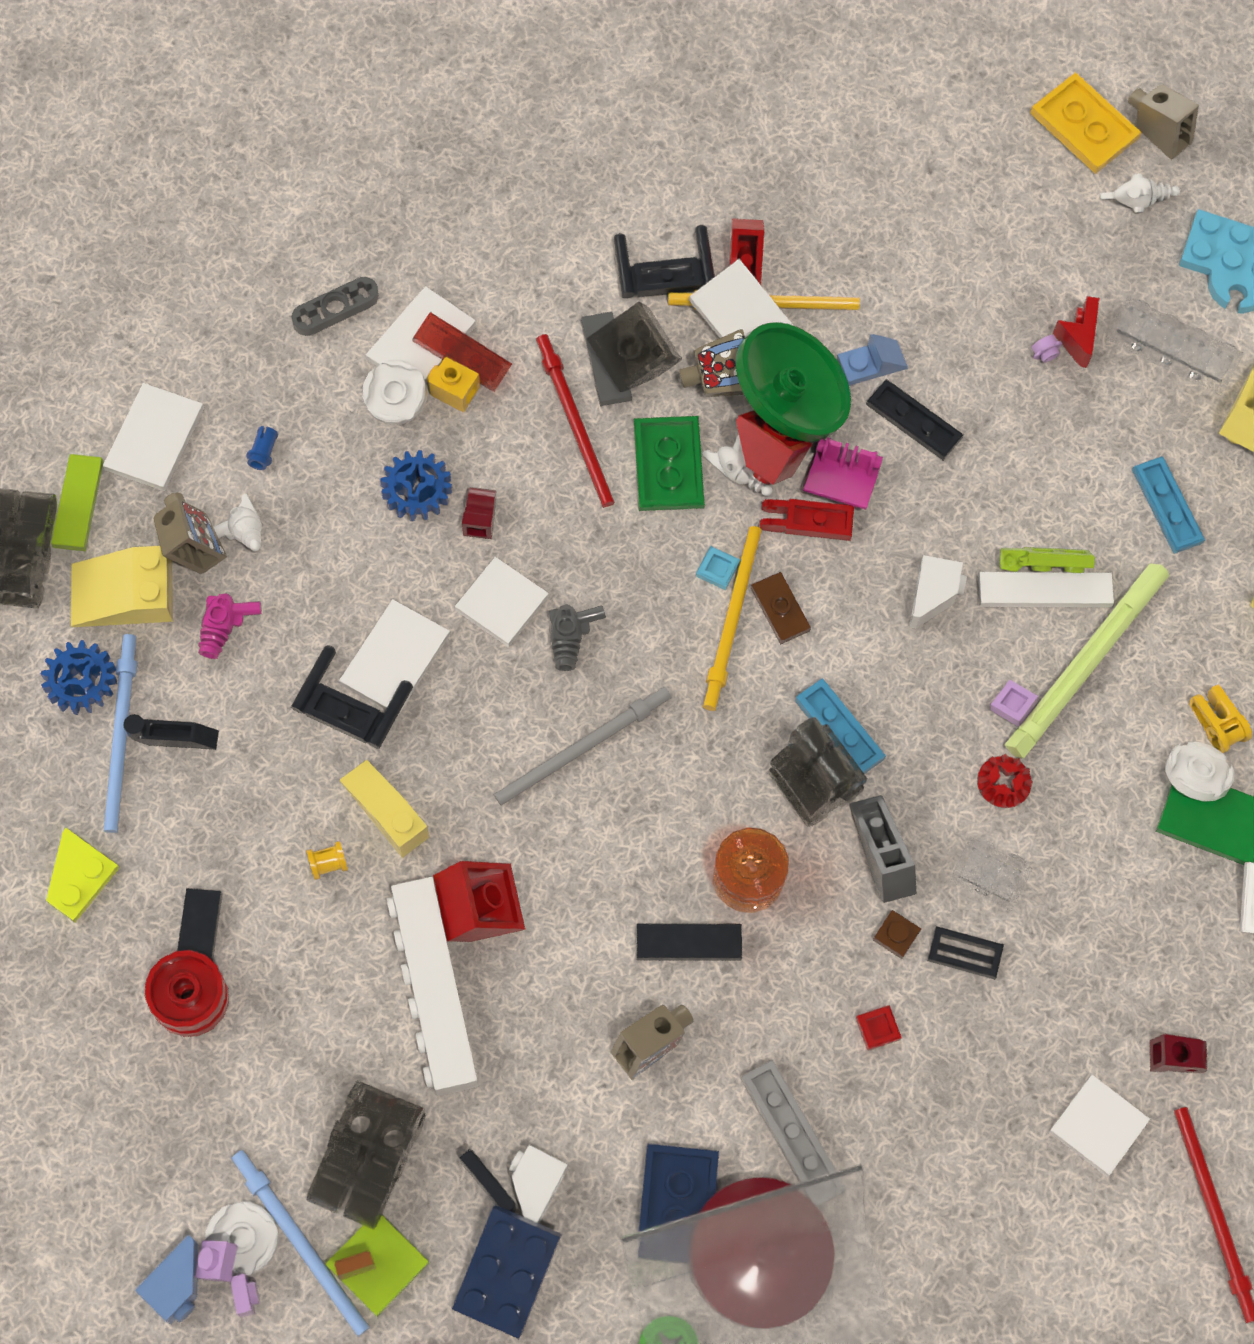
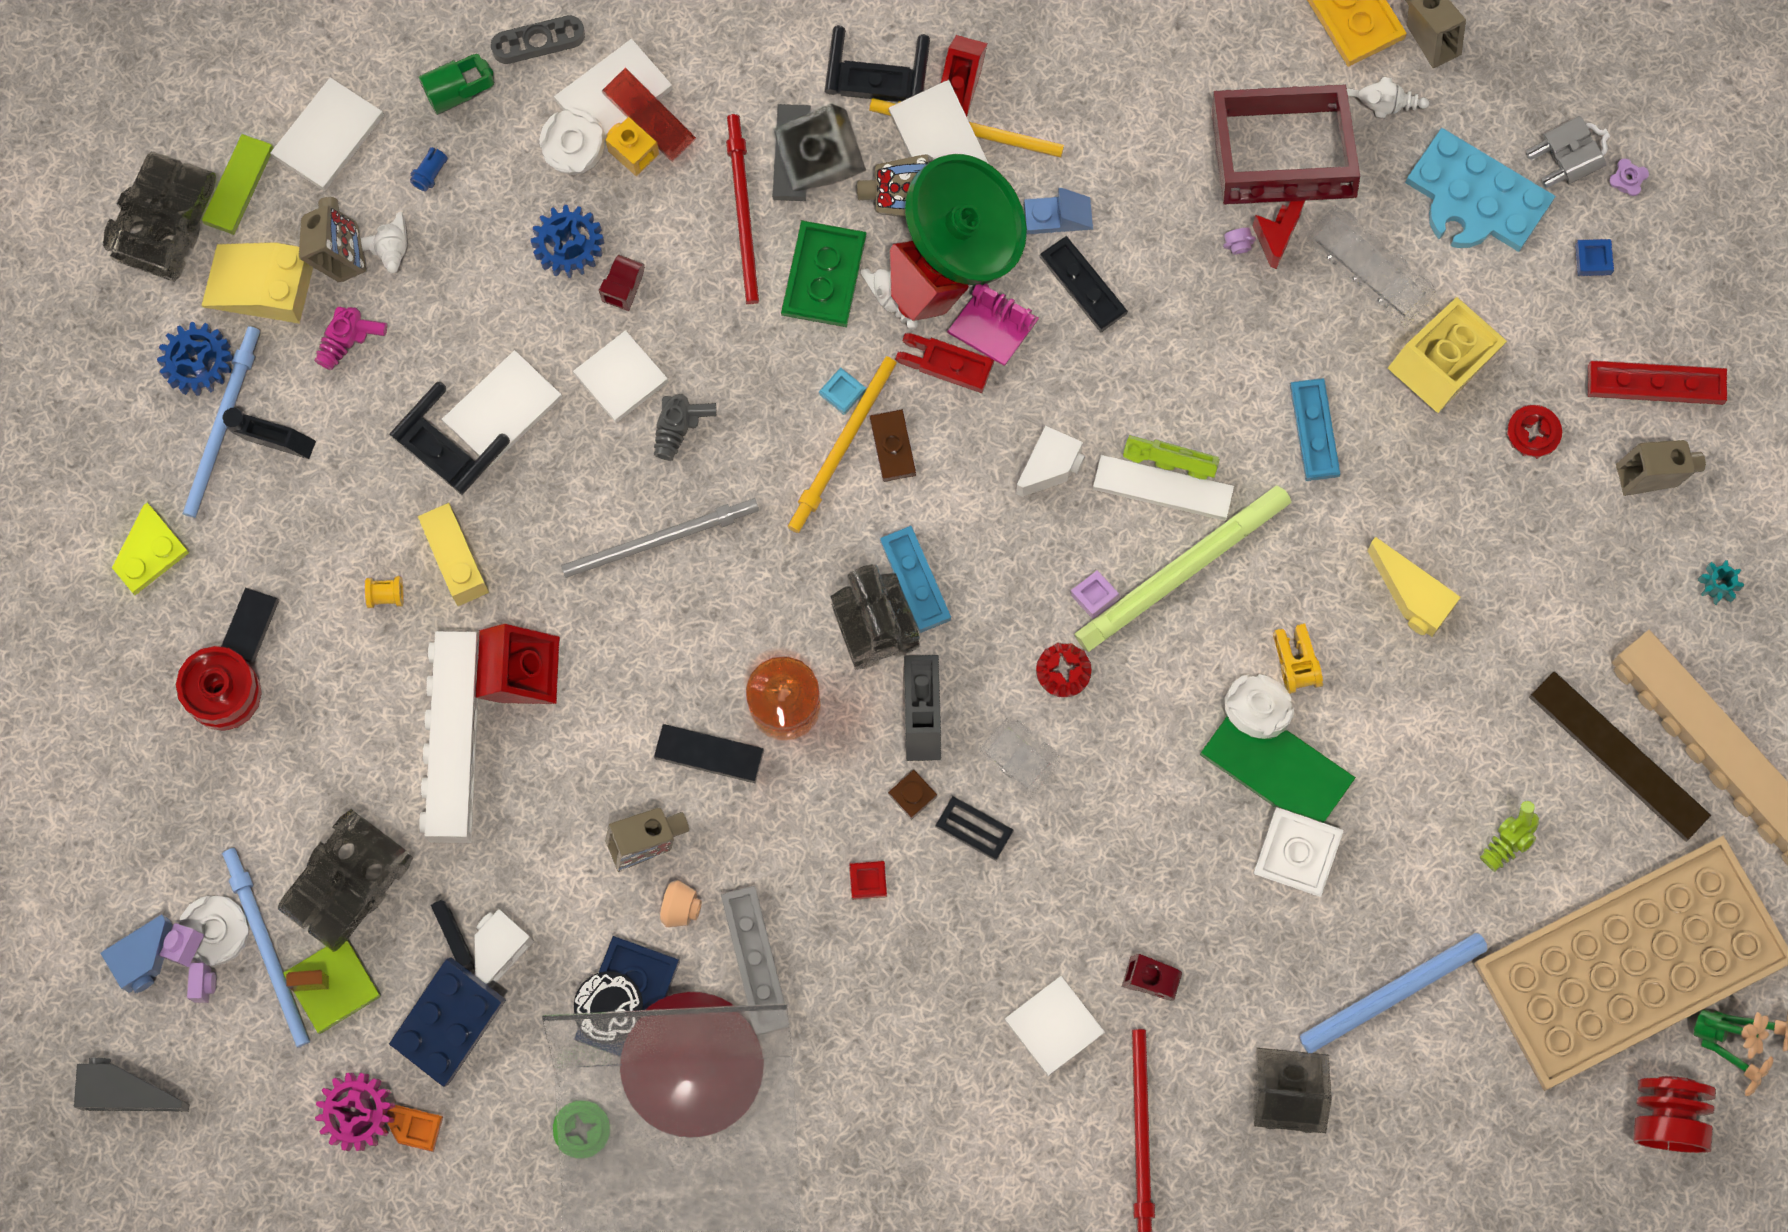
camera: 20 degrees right, 5 degrees up
(263, 366) = (447, 87): none -> green piece
(658, 1204) = (607, 993): none -> black sticker
(704, 1097) = (679, 905): none -> light nougat cone
(1072, 287) = (1287, 183): none -> dark red window

